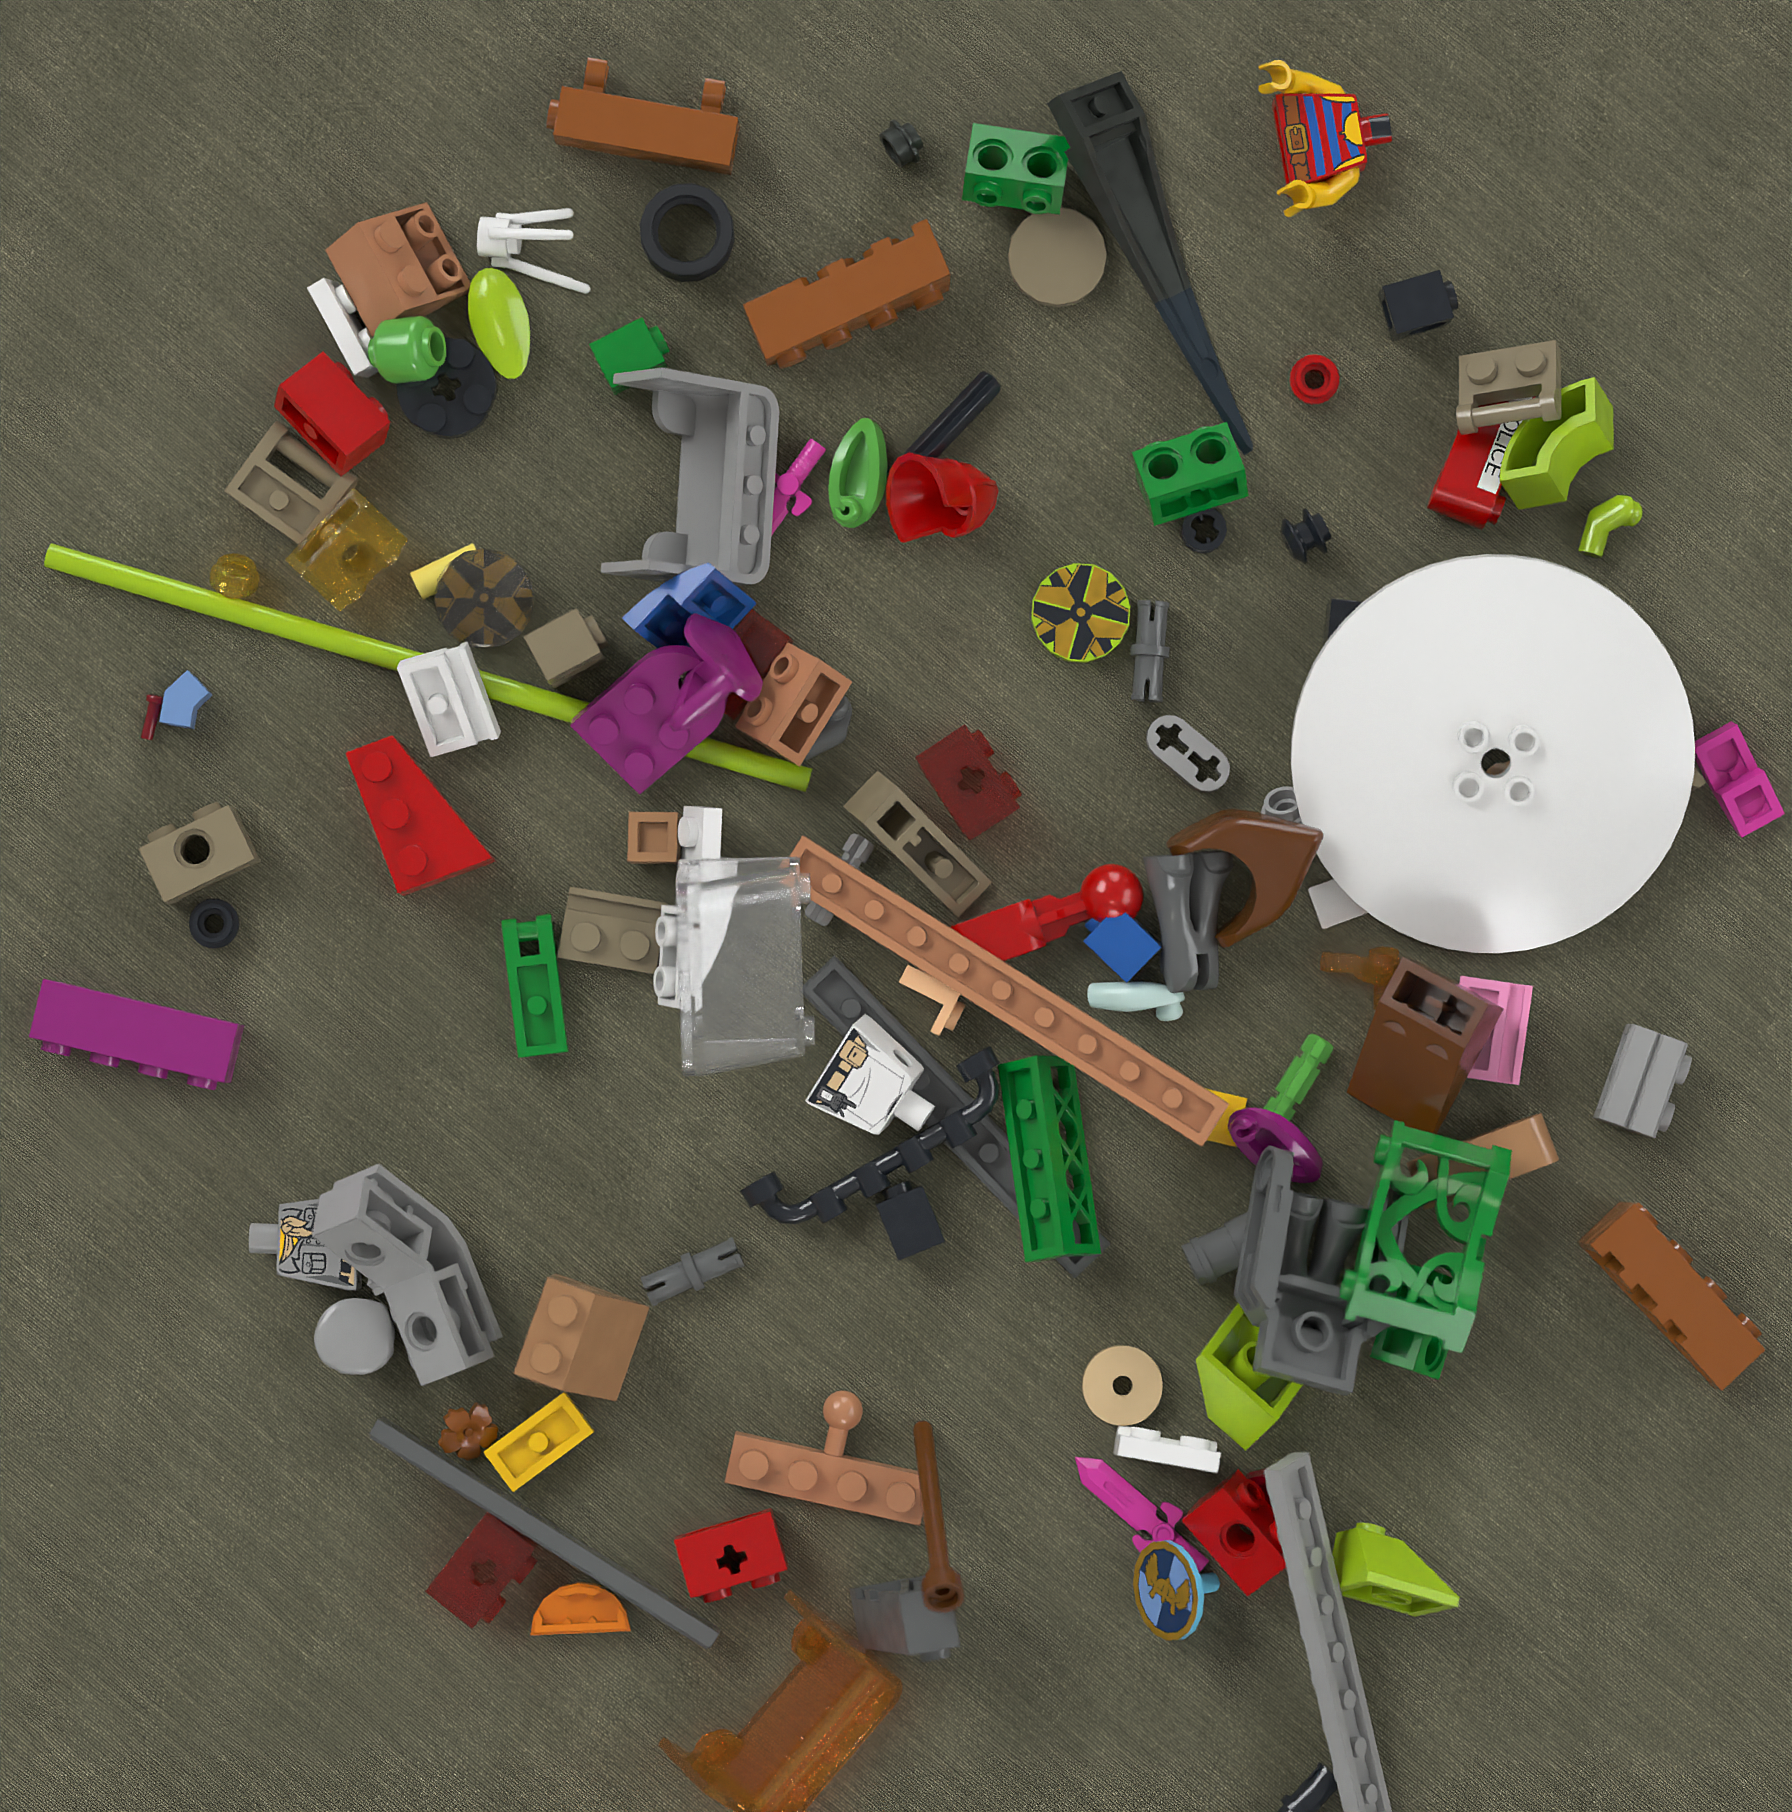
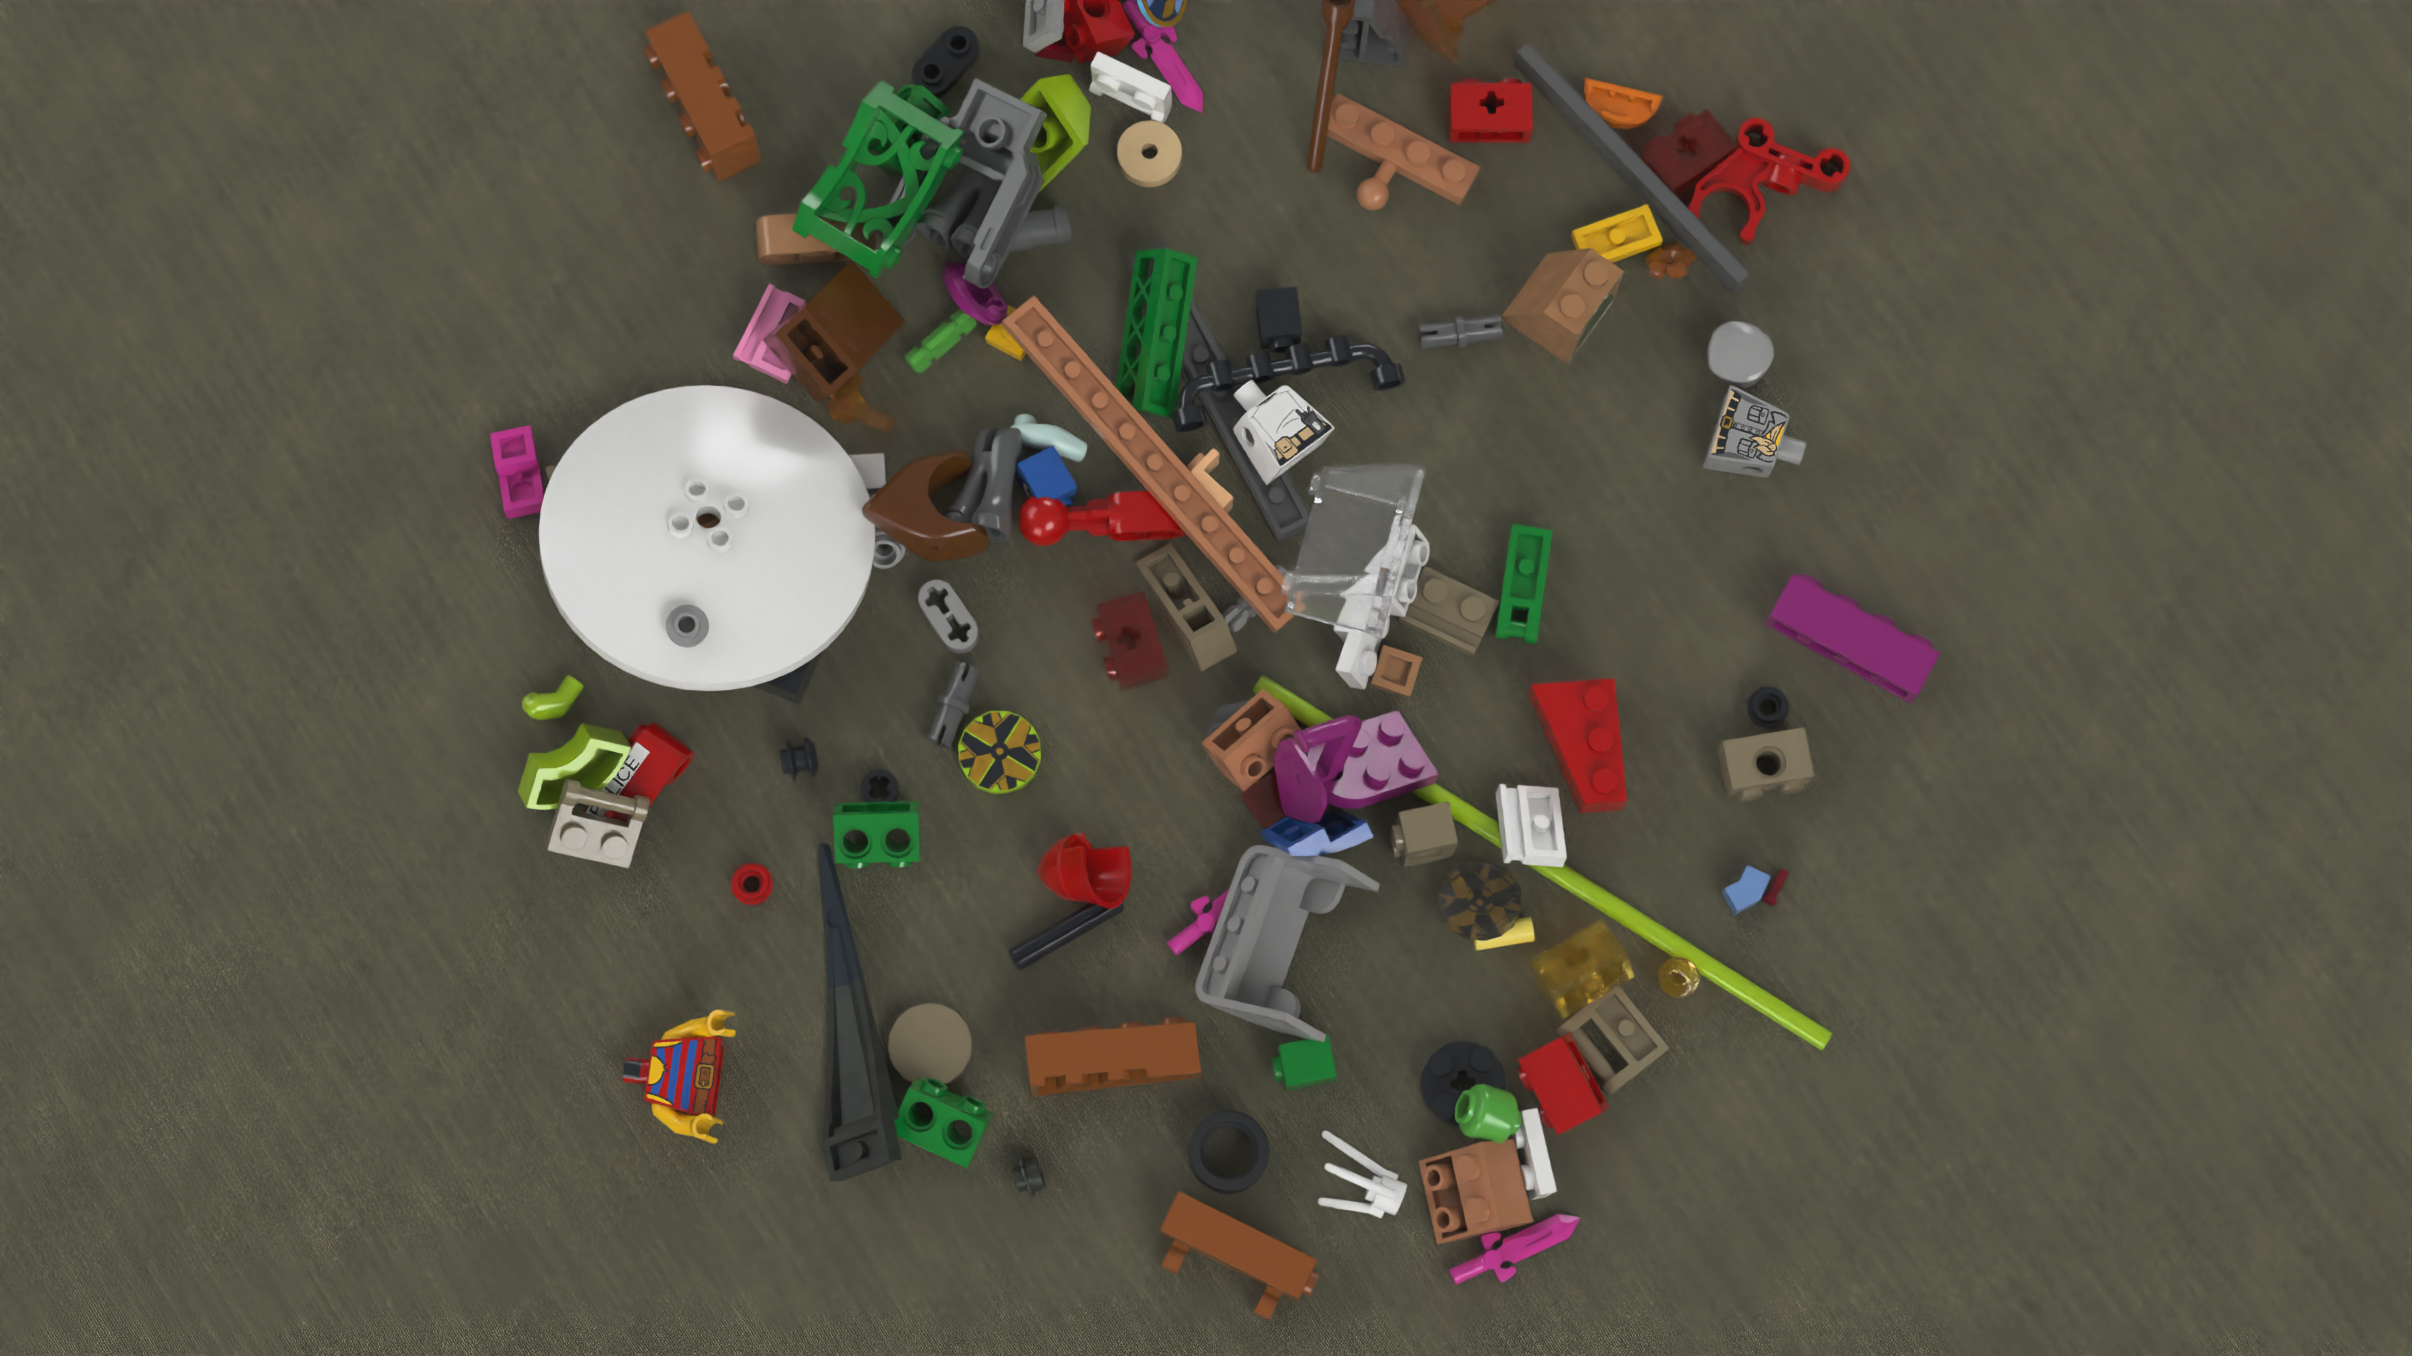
camera: 170 degrees left, 10 degrees down
(337, 221) = (1515, 1248): none -> dark pink sword
(382, 1585) = (1770, 166): none -> red piece
(417, 1263) = (1674, 382): light grey brick -> none
(499, 321) = (1404, 1123): lime arm -> none
(858, 474) = (1146, 913): bright green arm -> none
(1398, 1428) = (946, 60): none -> black plate
(1417, 305) = (648, 917): black brick -> none
(1469, 633) = (692, 638): none -> light grey plate
(1642, 1081) = (671, 260): light grey brick -> none

